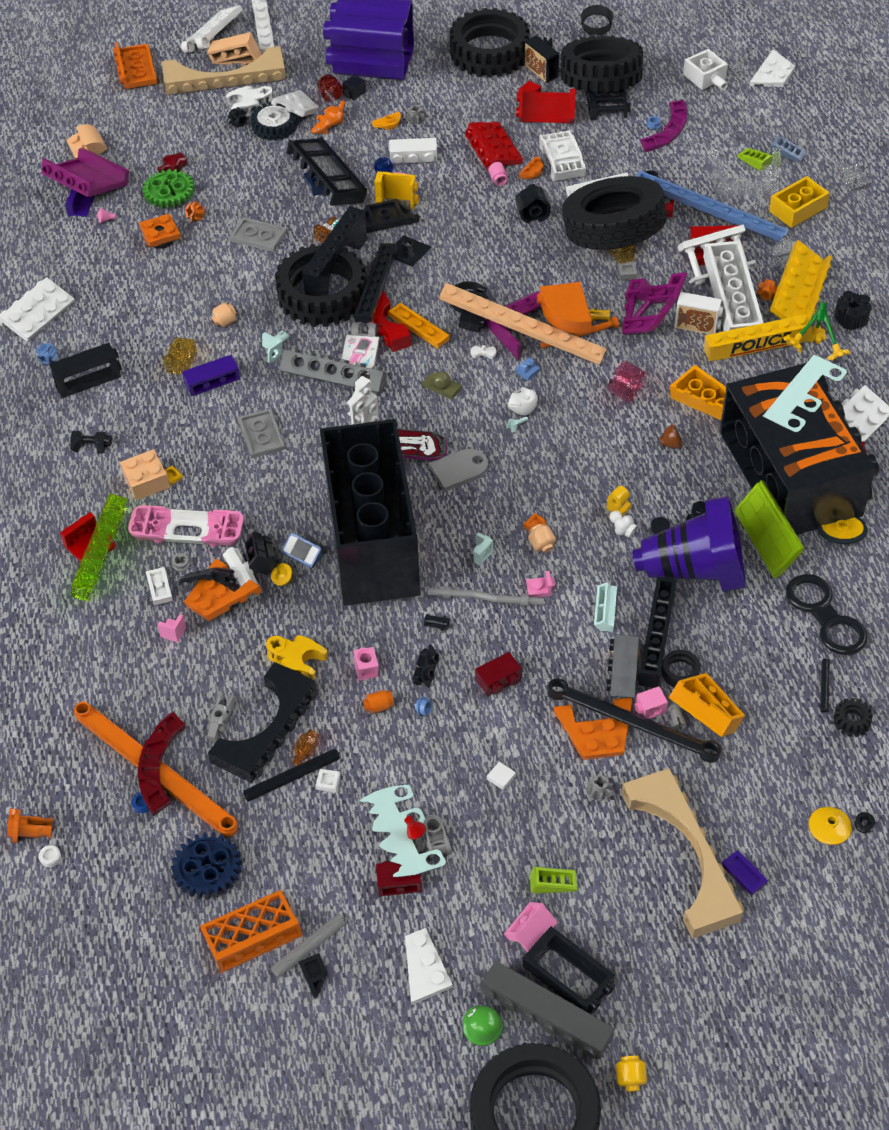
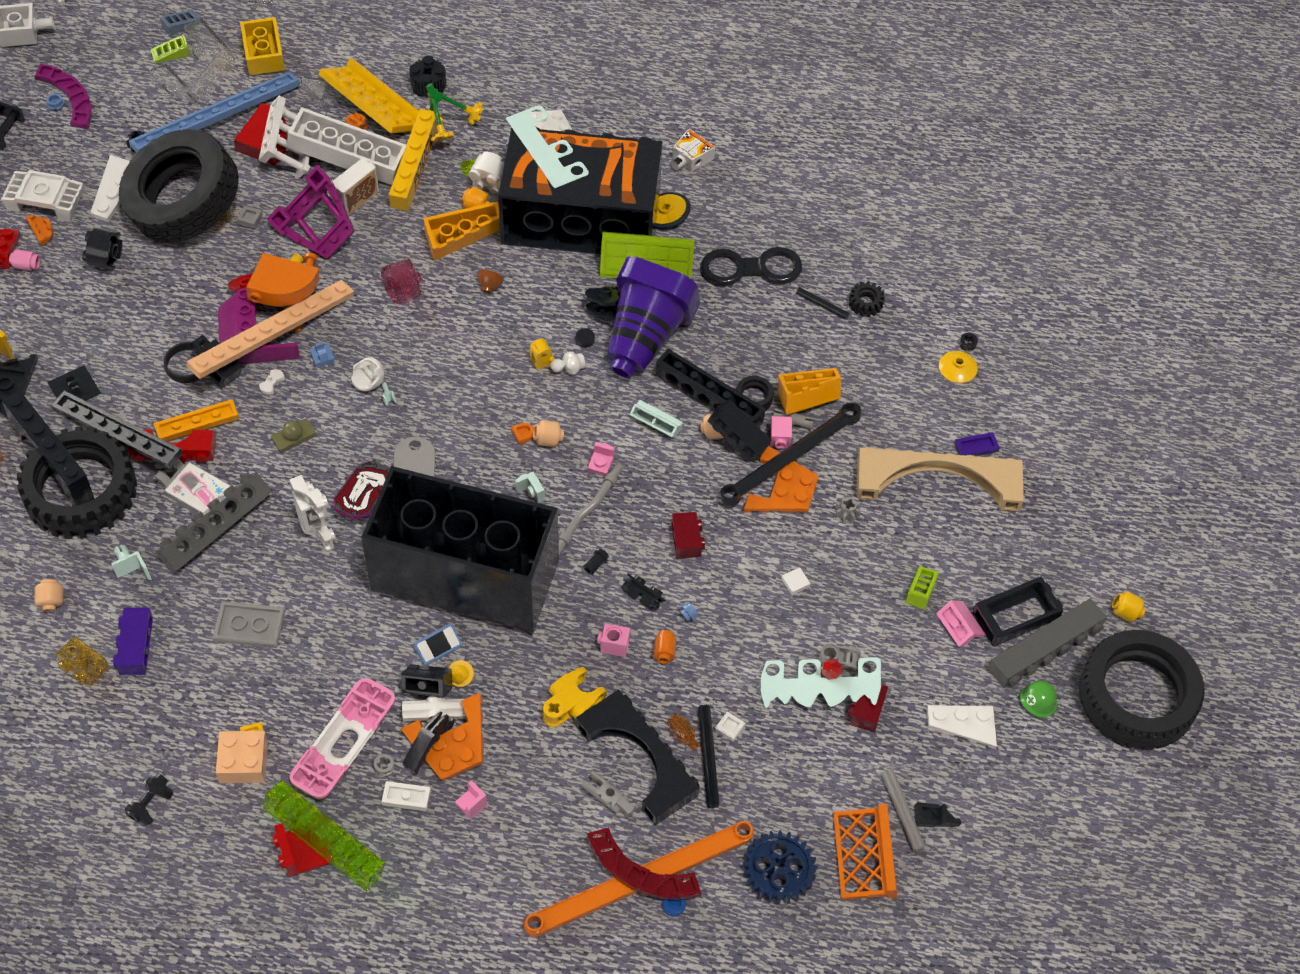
camera: 70 degrees left, 5 degrees up
(82, 362) = (43, 765): black piece -> none

